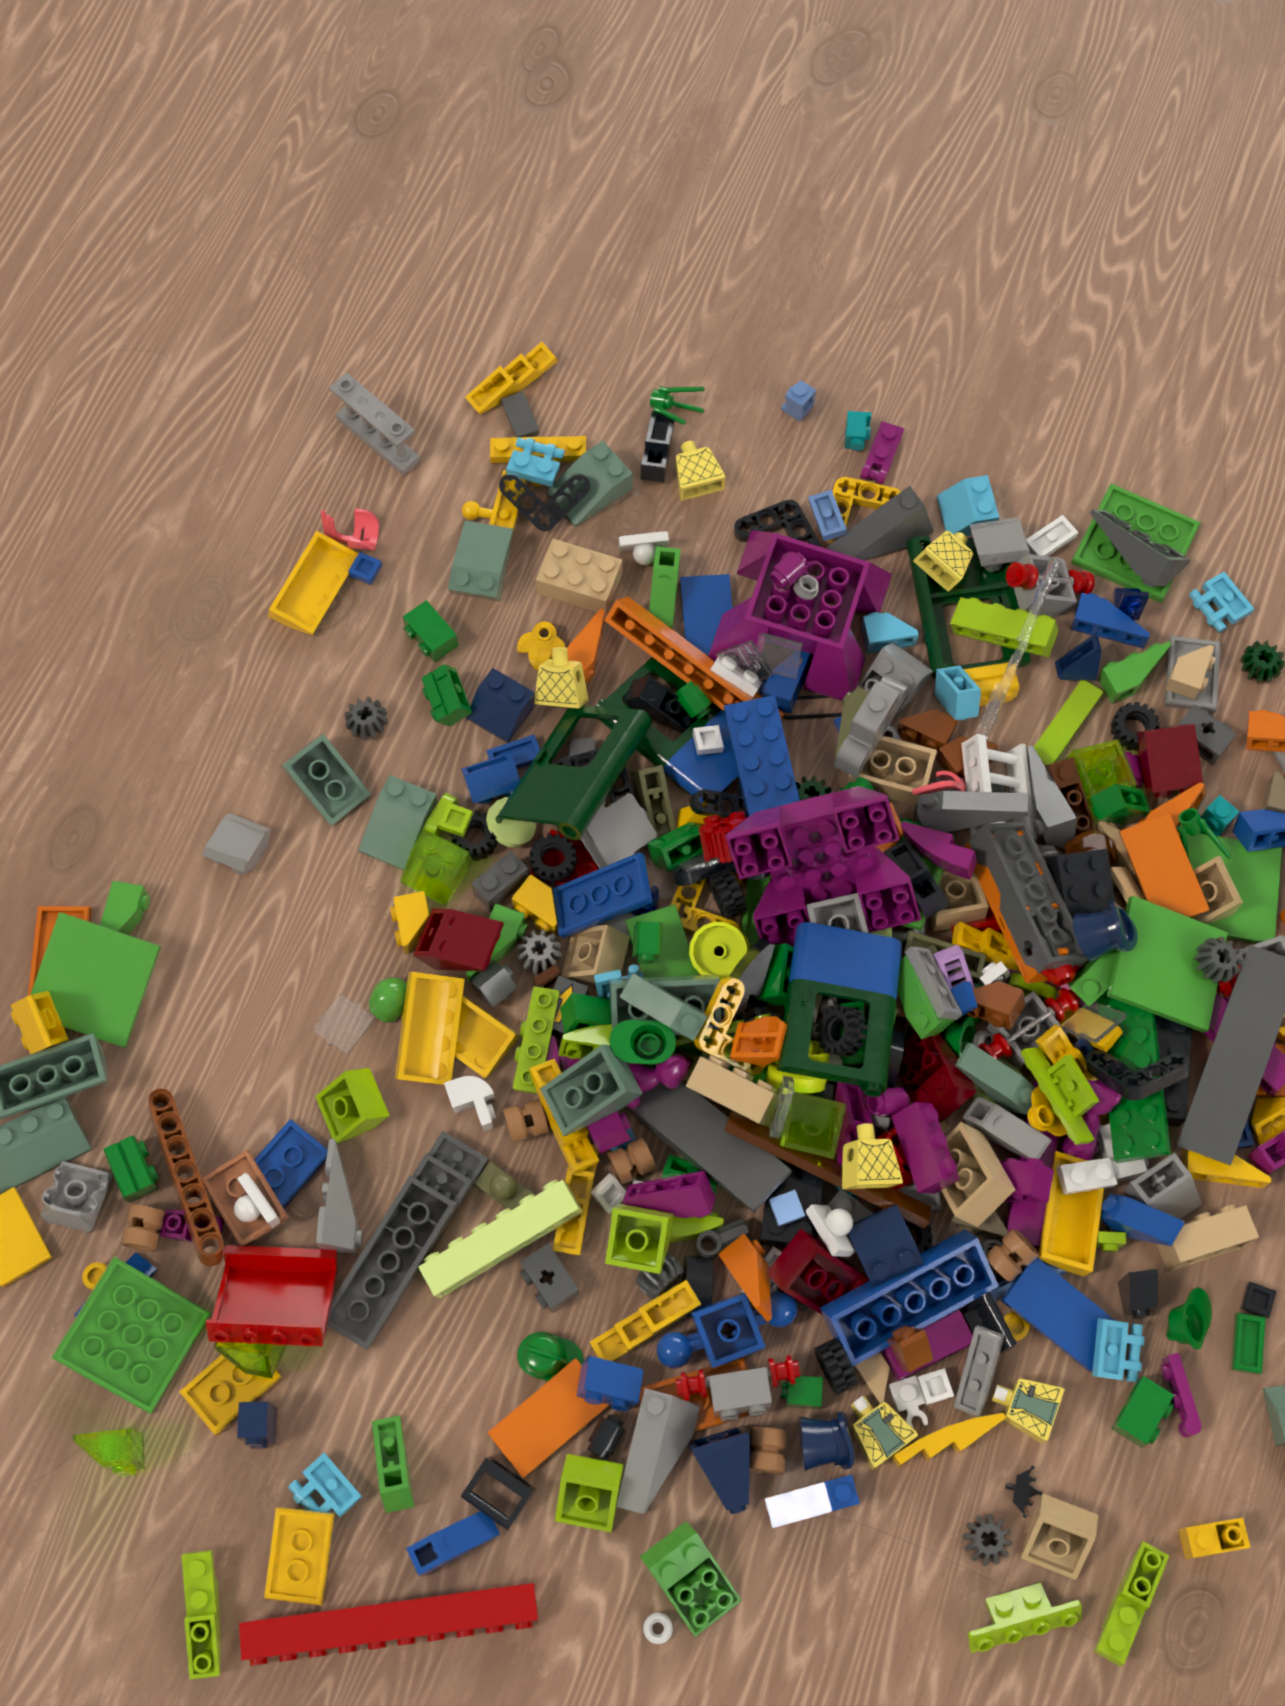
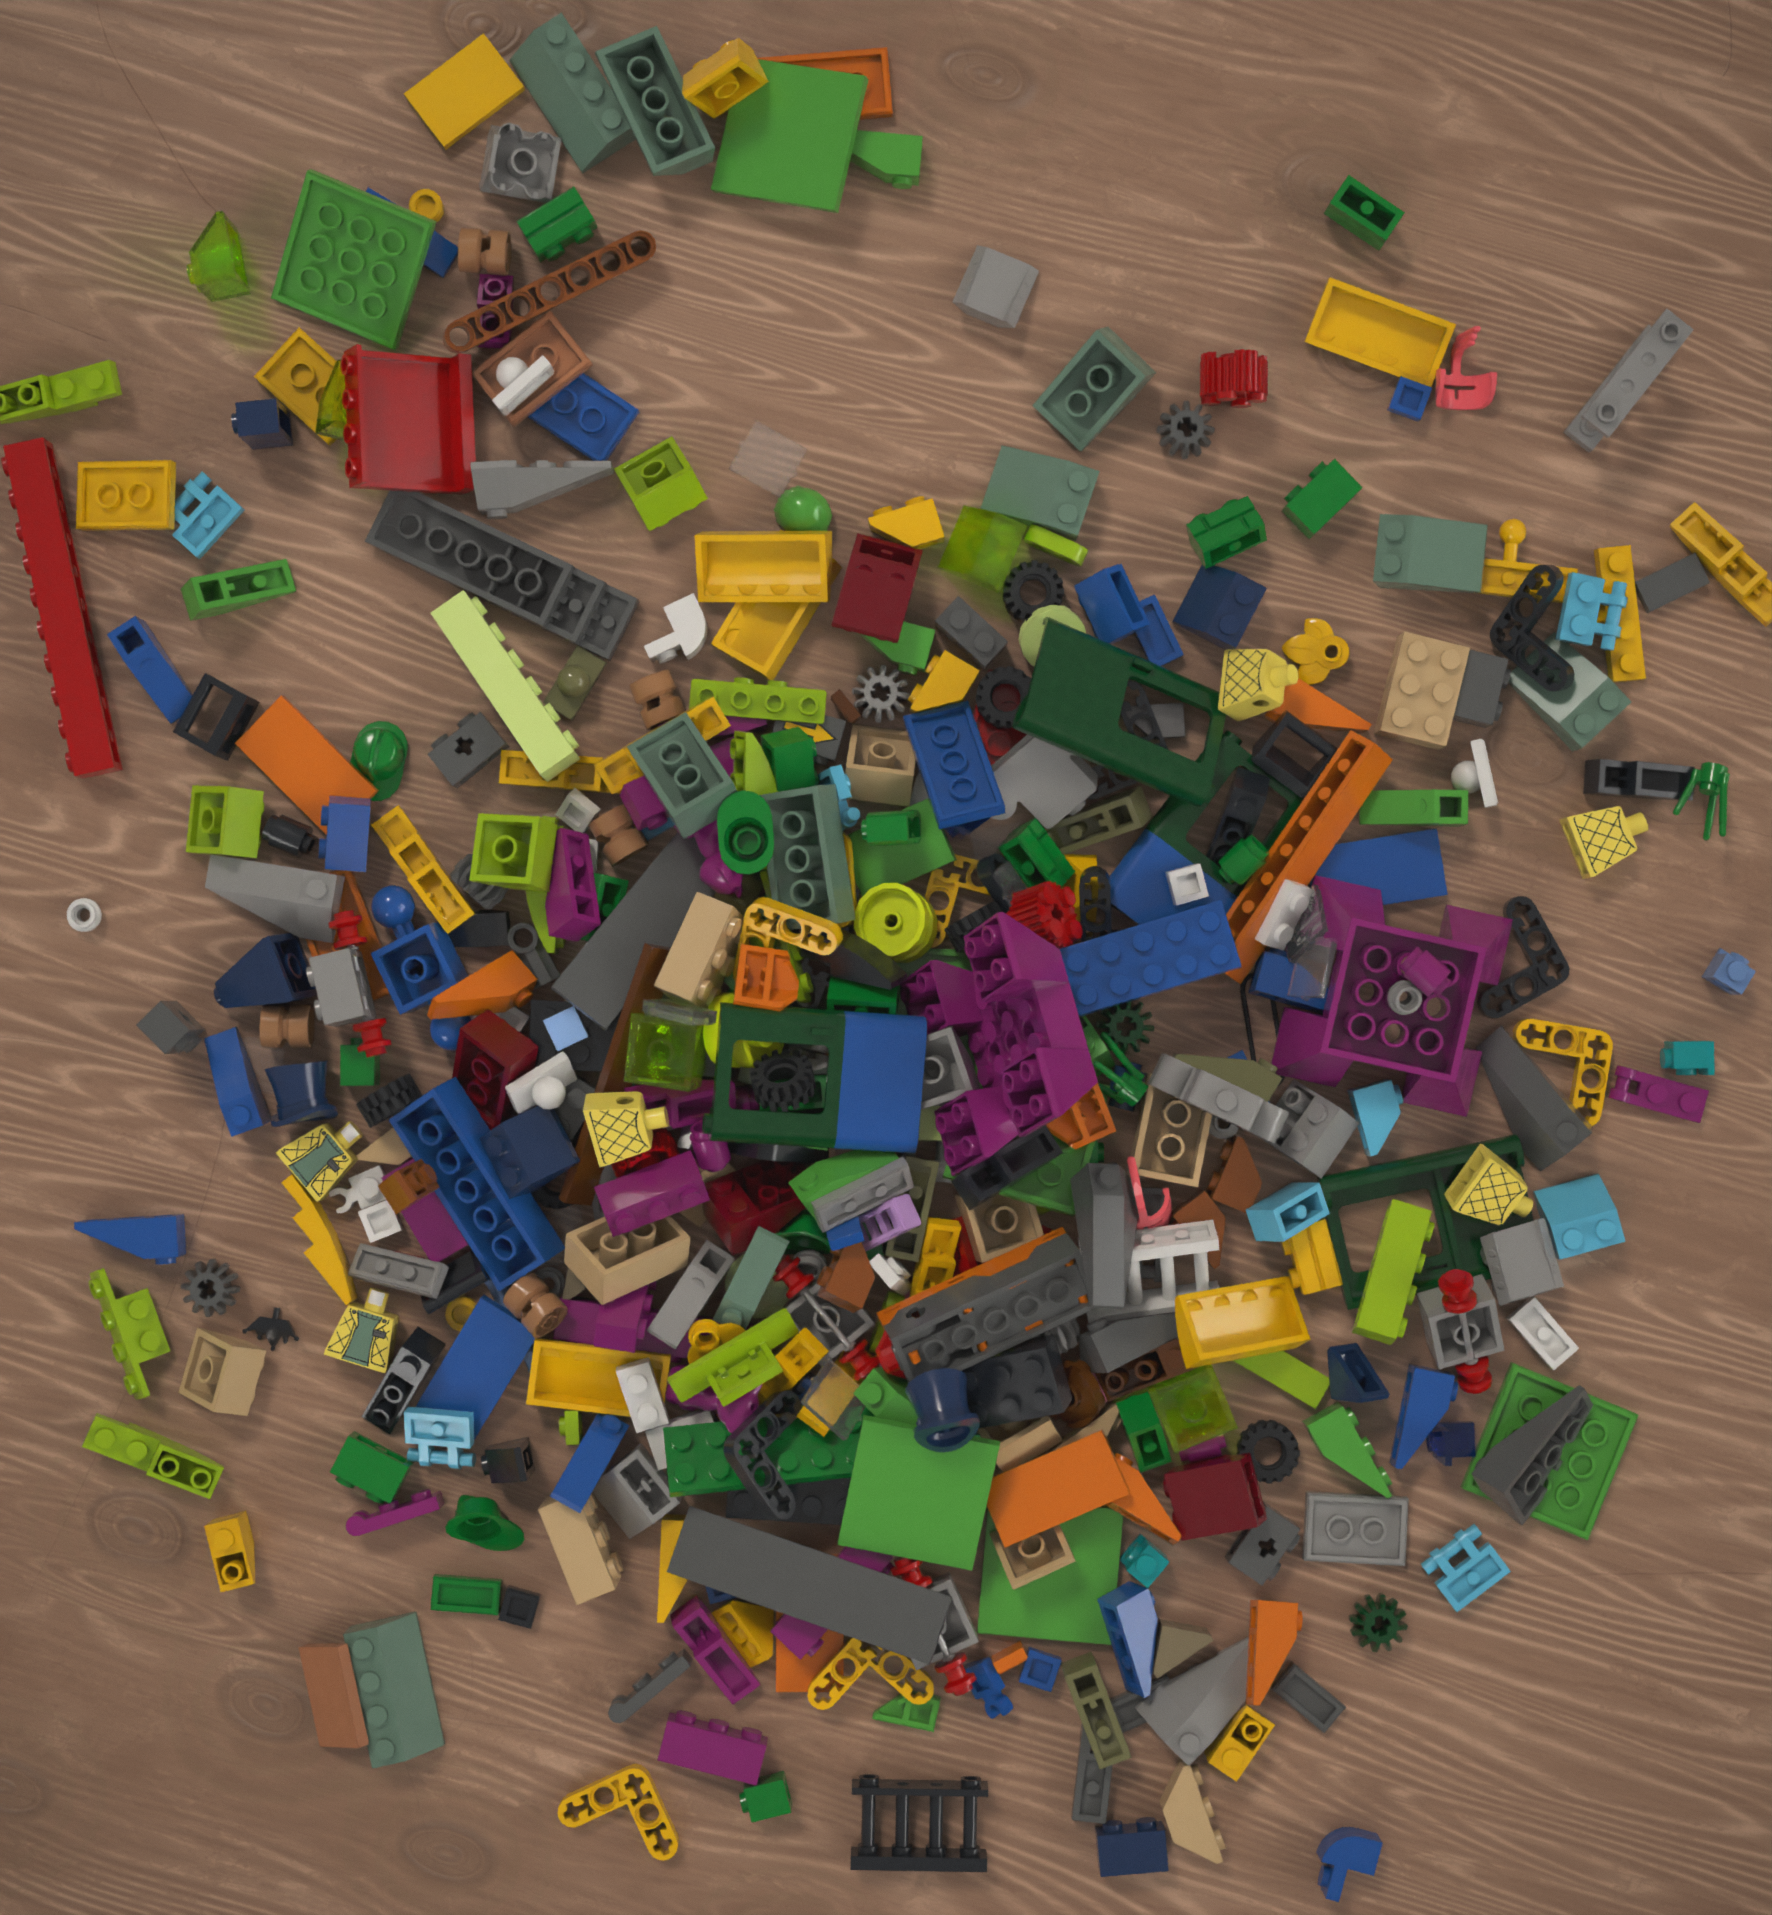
camera: 80 degrees right, 20 degrees up
(225, 583) = (1363, 212): none -> green brick
(333, 678) = (1233, 378): none -> red brick
(455, 819) = (1044, 565): lime plate -> none
(494, 983) = (830, 644): dark grey brick -> none
(583, 534) = (1481, 688): none -> dark grey brick
(615, 681) = (1281, 765): none -> black tile
(663, 1006) = (792, 857): sand green slope -> none
(690, 1578) = (140, 946): bright green slope -> none
(763, 1549) = (171, 1028): none -> dark grey brick
(827, 515) = (1544, 1022): medium blue plate -> none
(940, 1595) = (143, 1236): none -> blue slope
(941, 849) = (1045, 1197): magenta slope -> none
(1000, 690) = (1295, 1269): clear bar -> none
(1039, 731) = (1239, 1322): none -> yellow slope
(1061, 1370) = (403, 1379): none -> black slope
(1189, 672) = (1348, 1523): tan slope -> none
(1193, 825) = (1119, 1526): green plant -> none
(1217, 959) = (929, 1566): dark grey gear -> none

